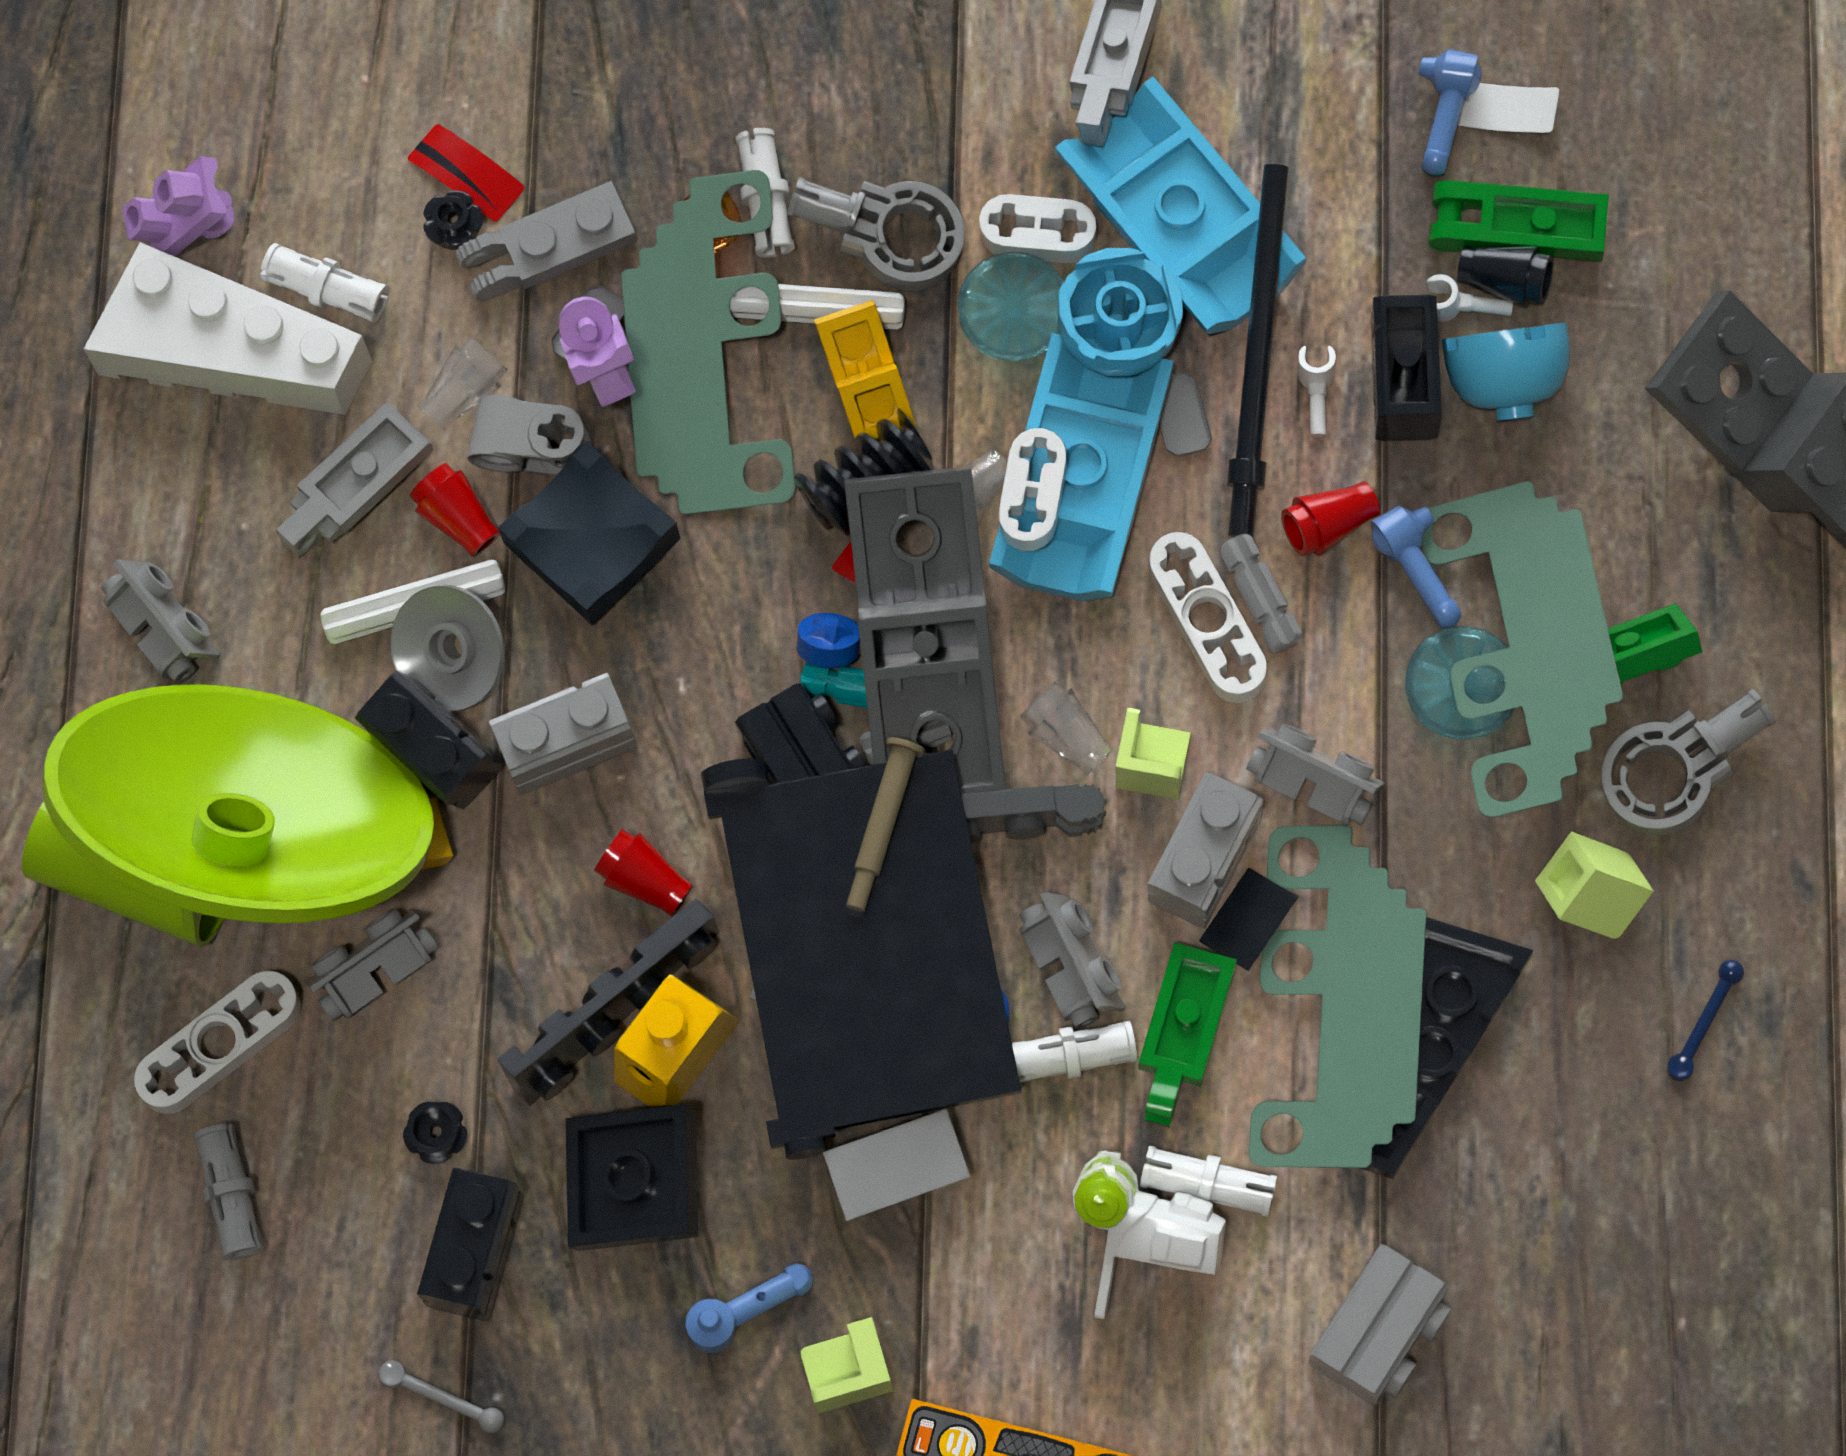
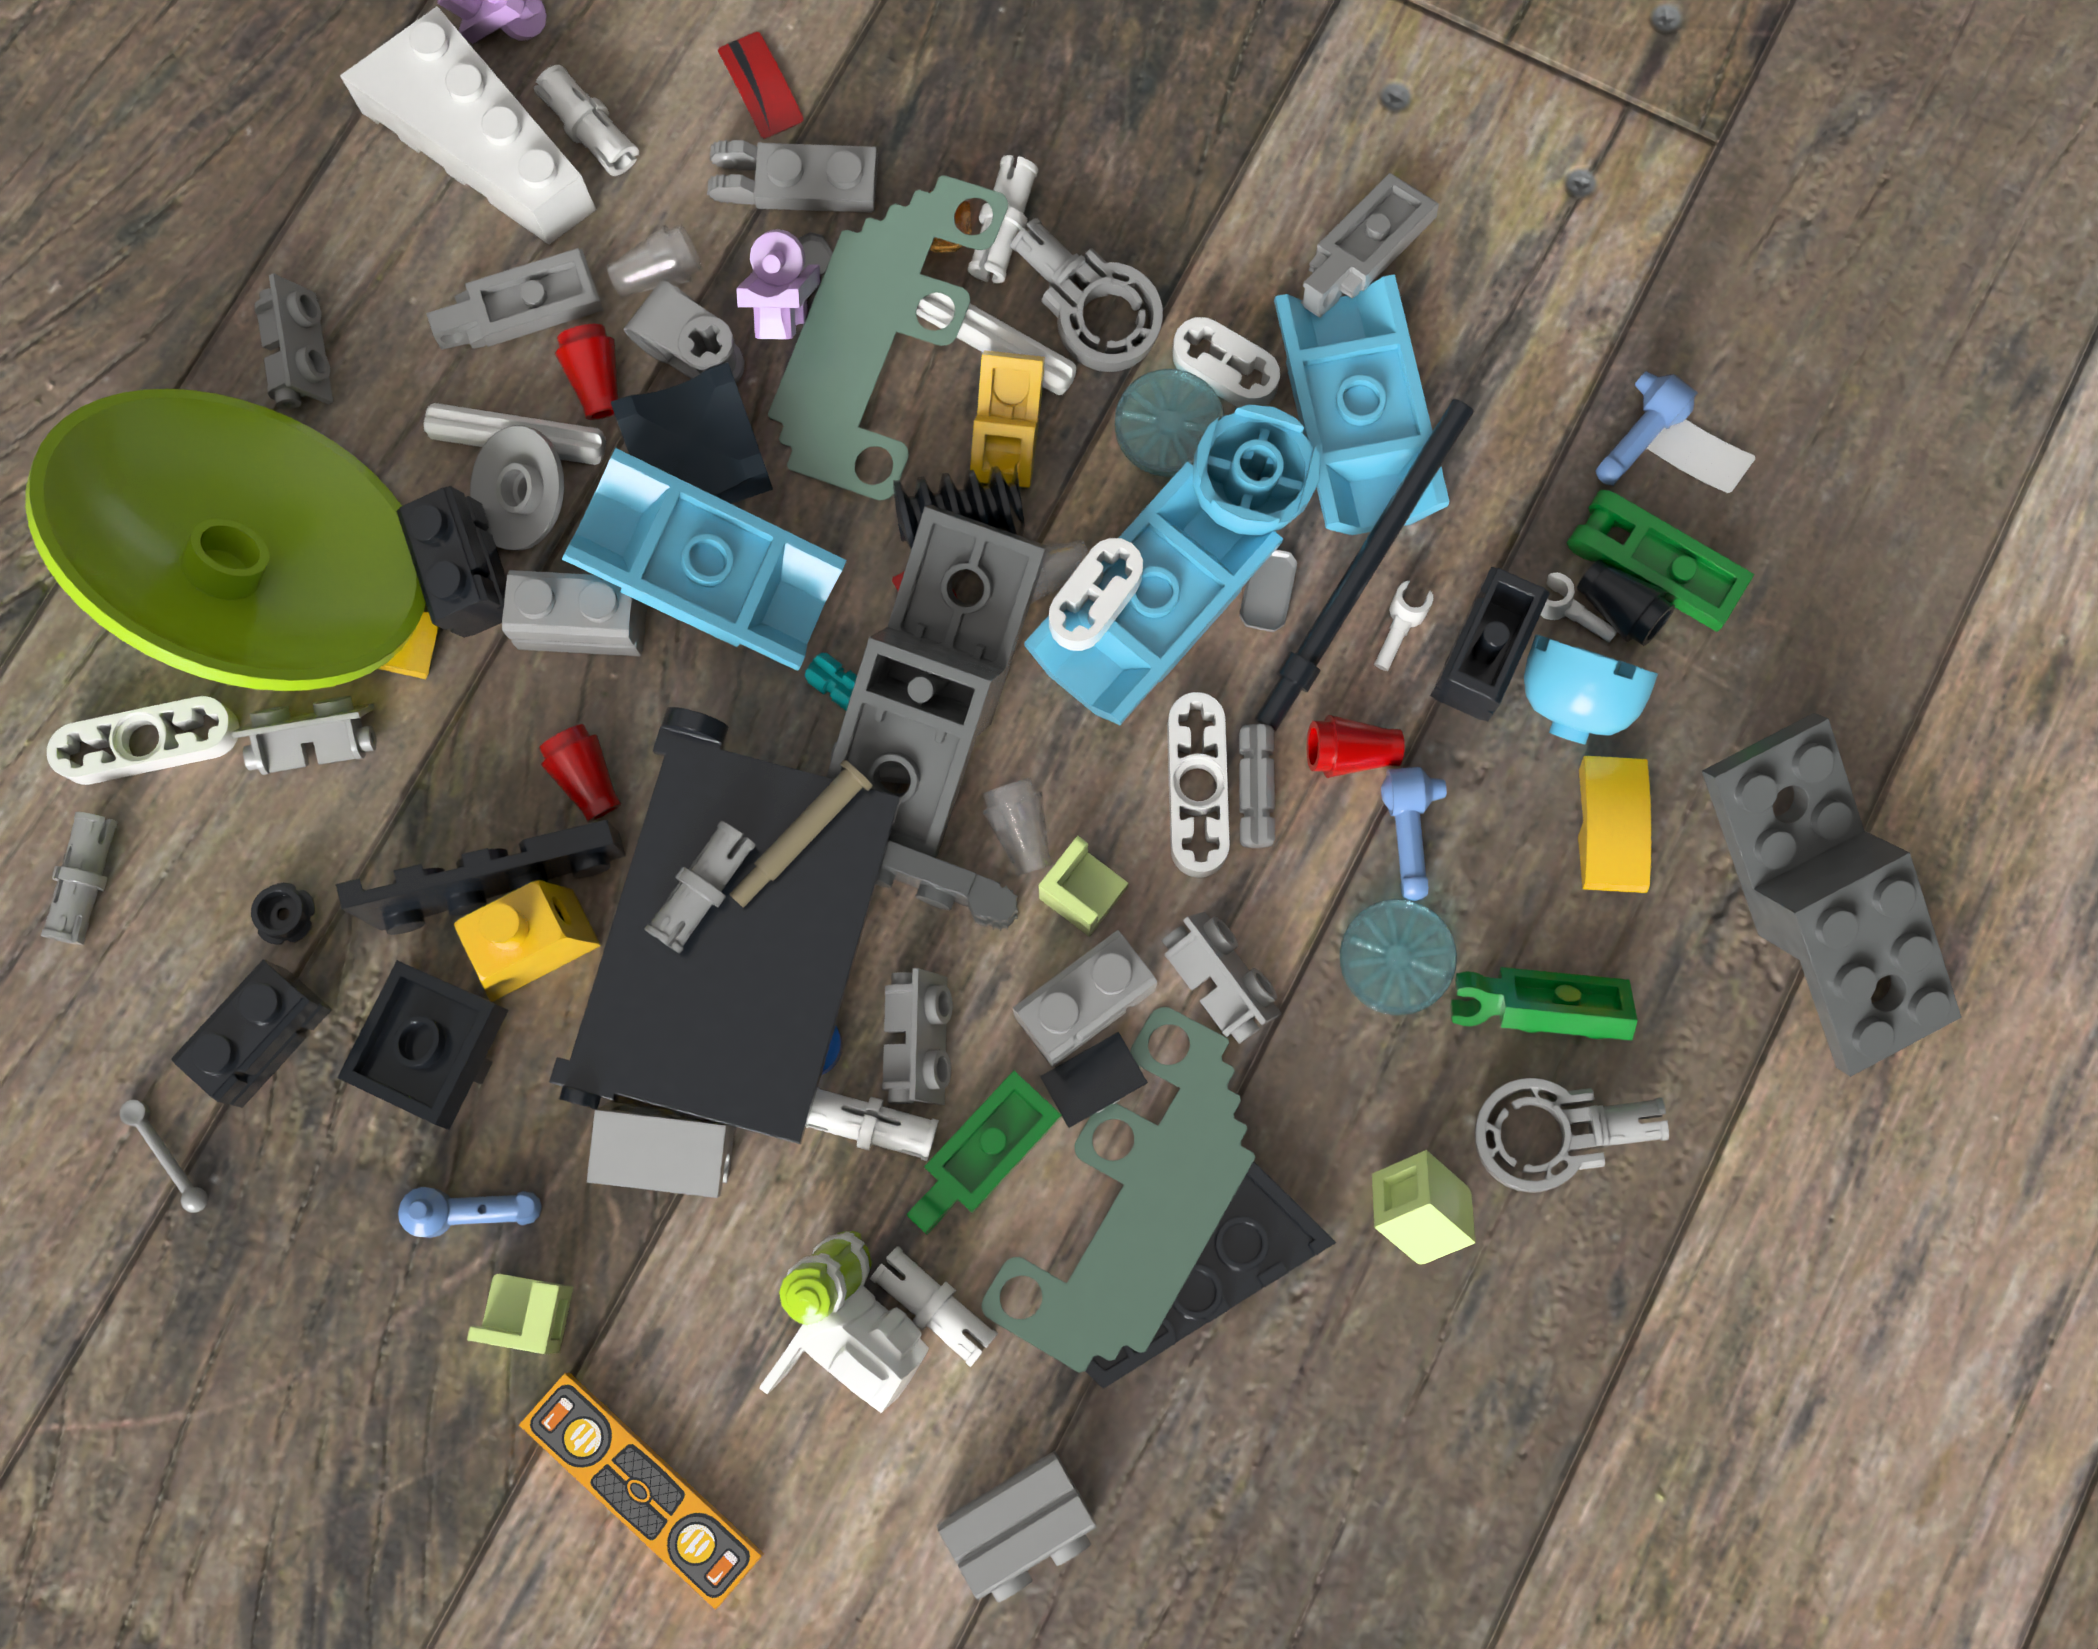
camera: 20 degrees right, 5 degrees up
(452, 234) = (733, 128): black plate -> none
(661, 626) = (704, 560): none -> medium azure piece
(795, 737) = (773, 718): black brick -> none
(818, 910) = (700, 886): none -> light grey pin
(828, 640) = (846, 639): blue tile -> none
(1556, 633) = (1506, 956): sand green piece -> none
(1595, 473) = (1615, 824): none -> yellow slope
(1681, 1065) = (1420, 1414): dark blue hinge -> none

